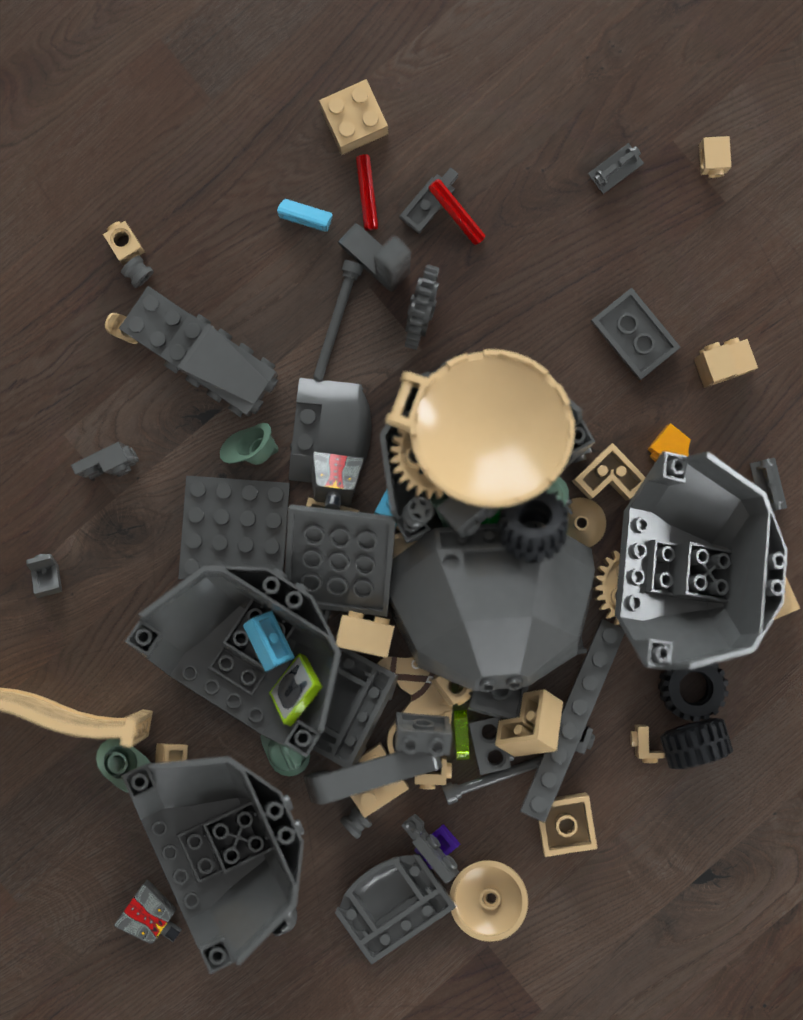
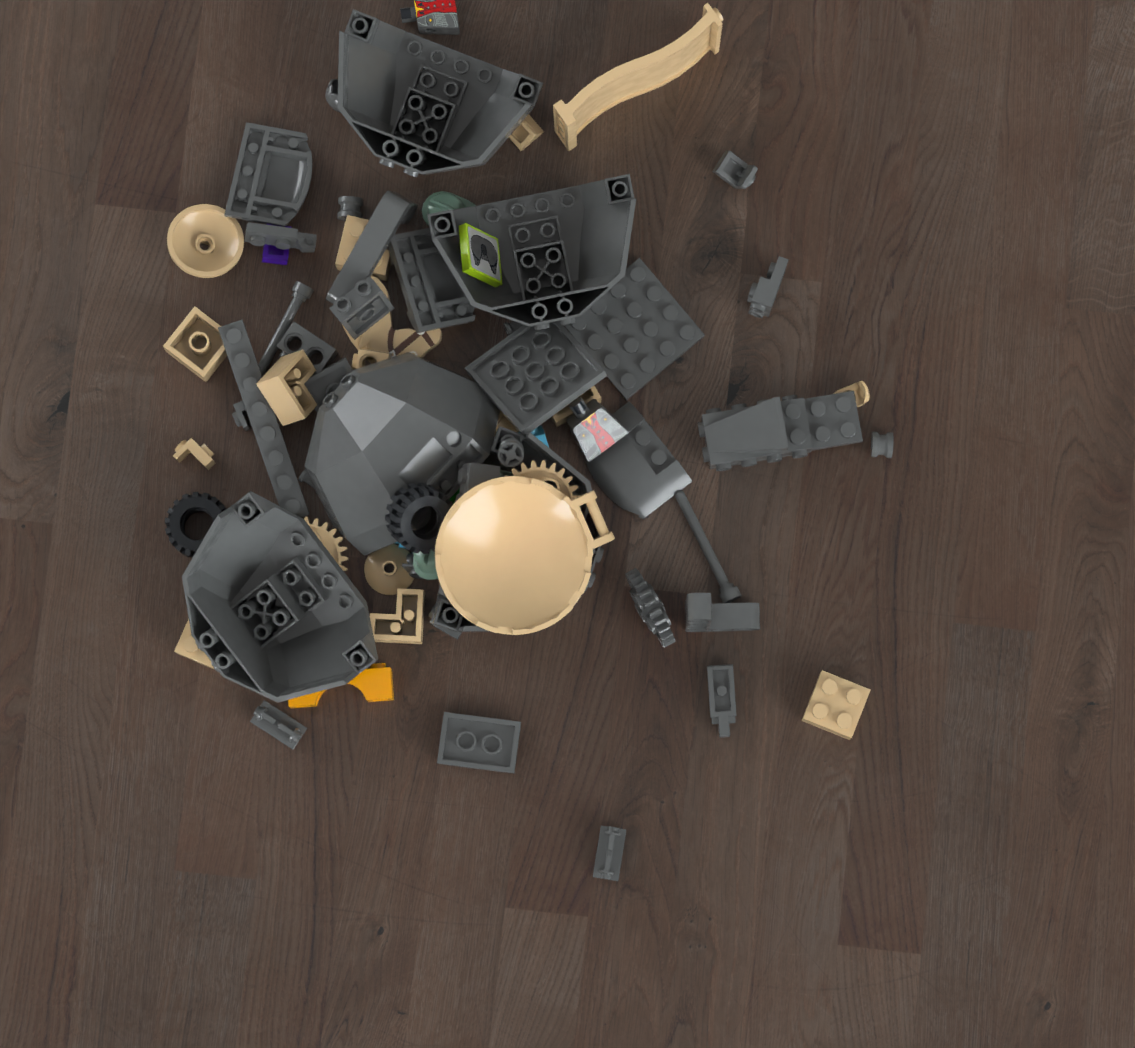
camera: 140 degrees right, 5 degrees down
(117, 760) = (555, 88): sand green piece -> none
(125, 252) = (901, 460): tan brick -> none
(249, 445) = (680, 397): sand green piece -> none
(268, 641) = (531, 271): medium azure slope -> none
(304, 215) = (802, 602): medium azure slope -> none
(365, 634) = (467, 341): tan brick -> none
(367, 192) = (773, 661): red axle -> none
(433, 778) = (321, 291): tan bracket -> none
(456, 211) = (693, 706): red axle -> none
(461, 735) = (333, 338): clear neon green beam -> none
(696, 743) = (160, 485): black tyre -> none
(715, 156) = (544, 930): tan brick -> none
(725, 362) = (393, 782): tan brick -> none

